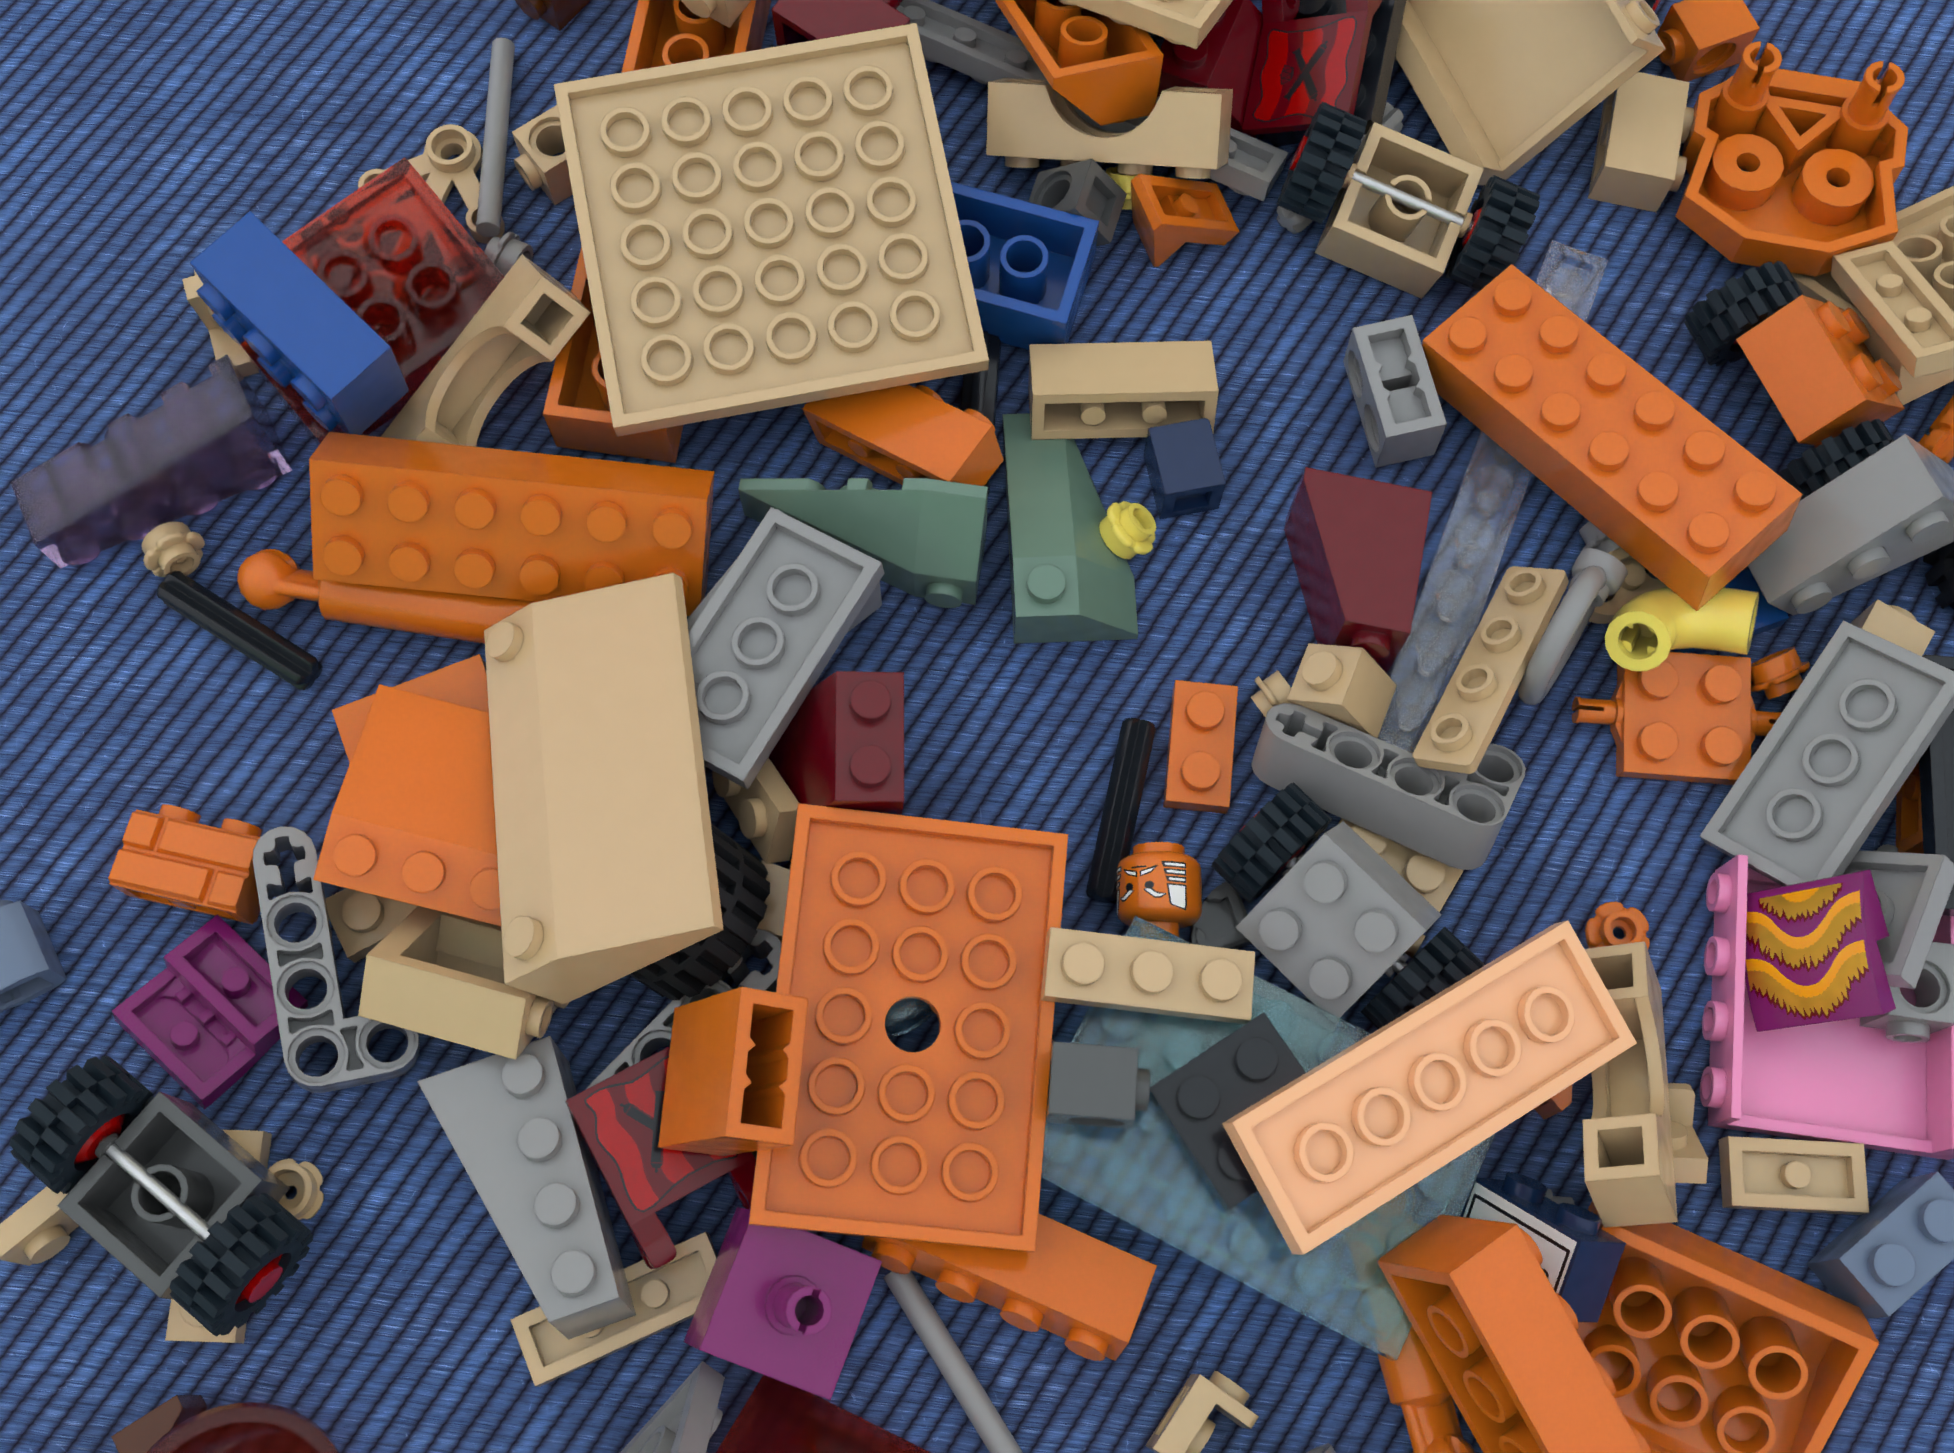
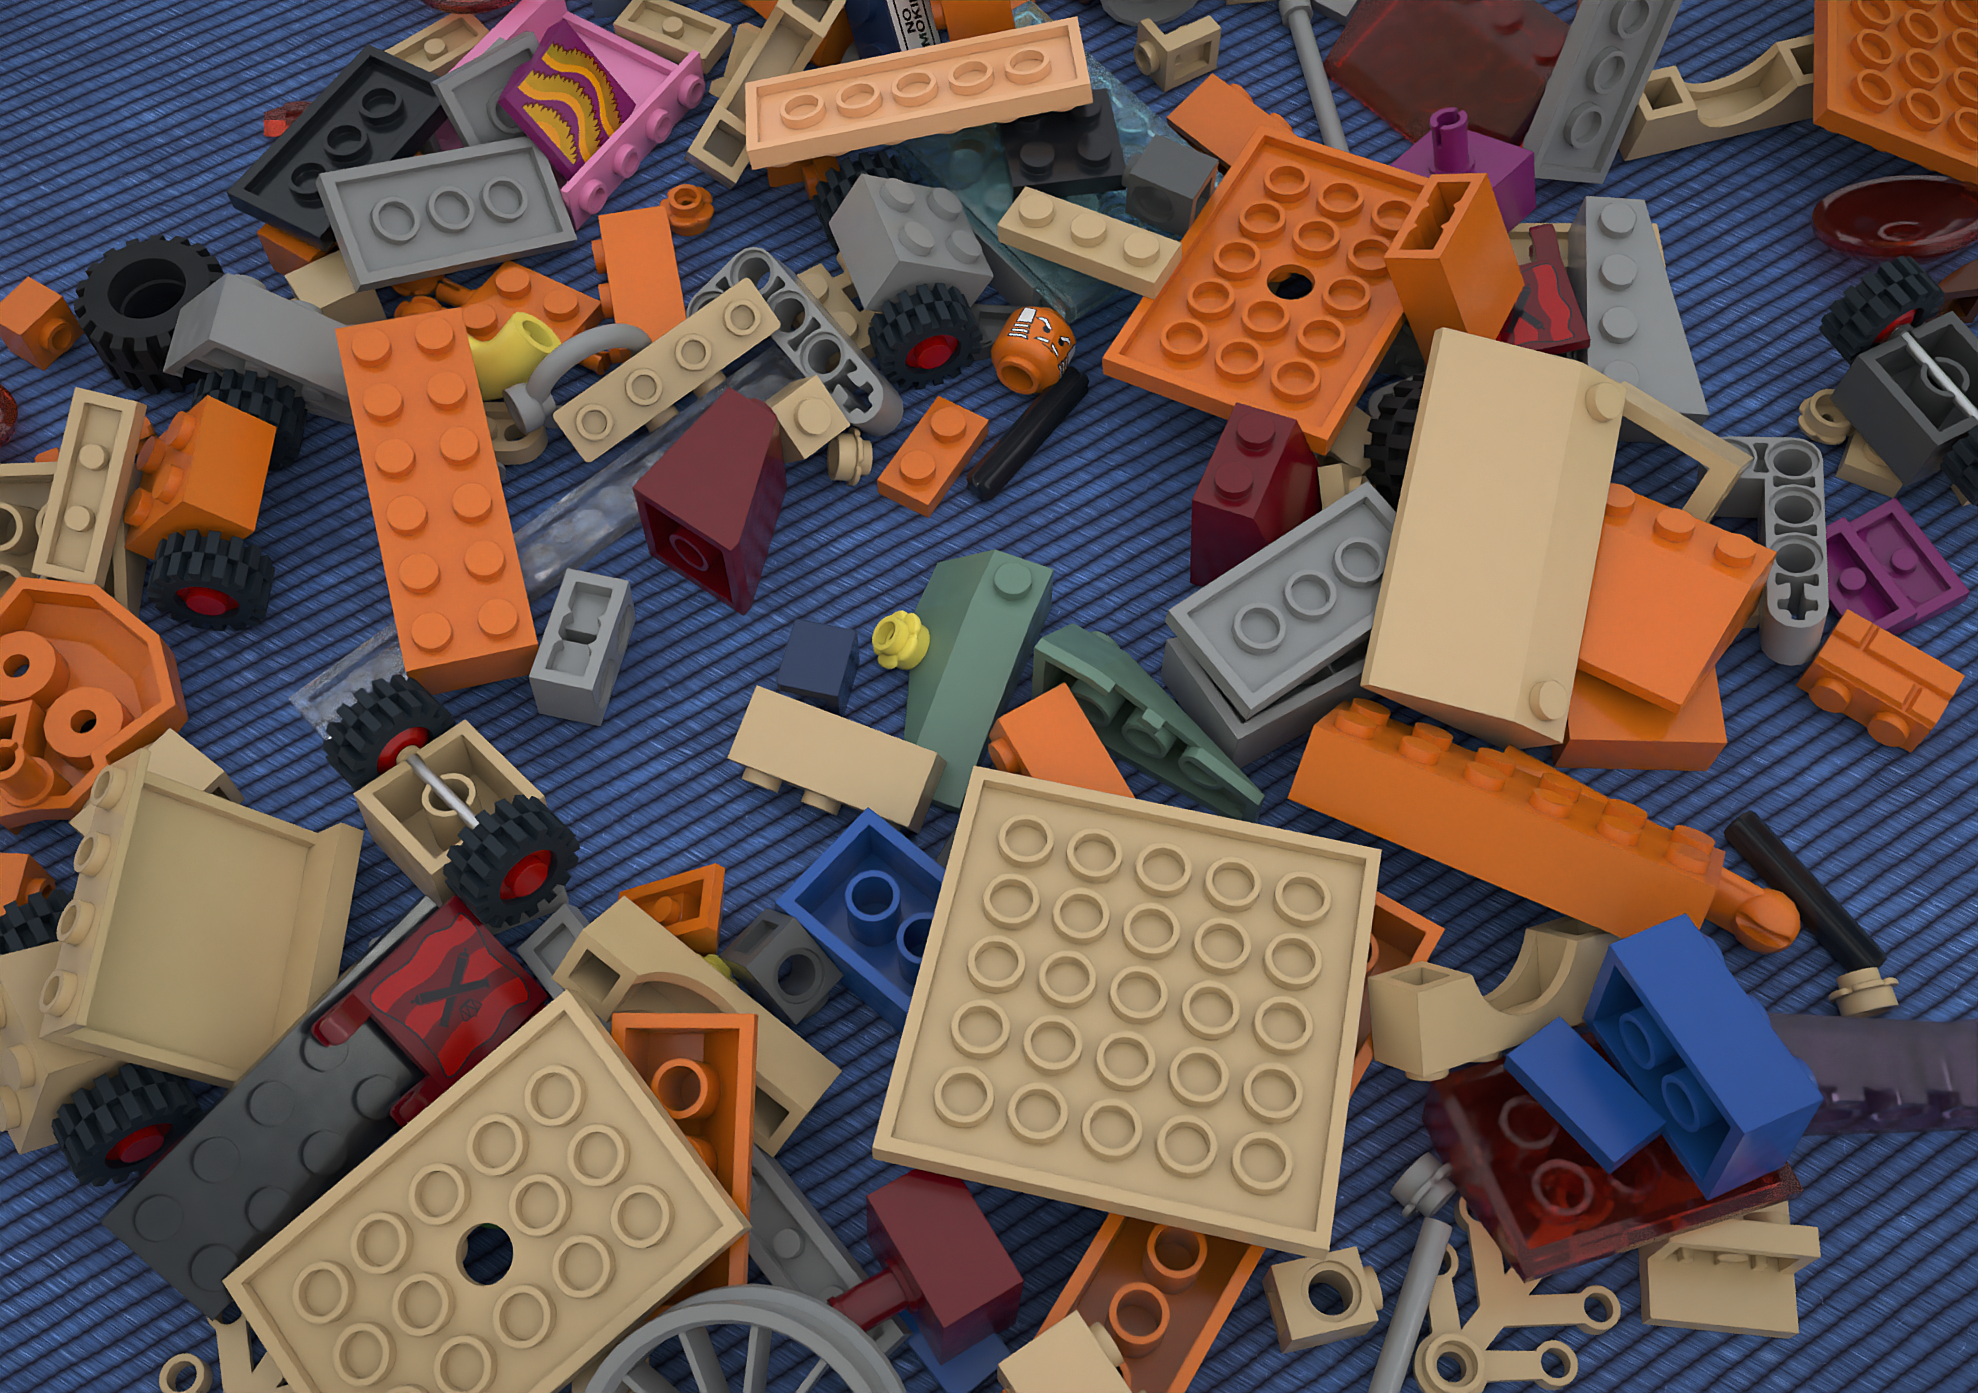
camera: 155 degrees left, 10 degrees down
(396, 309) = (1584, 1094): none -> blue tile
(1589, 794) = (641, 273): none -> orange brick

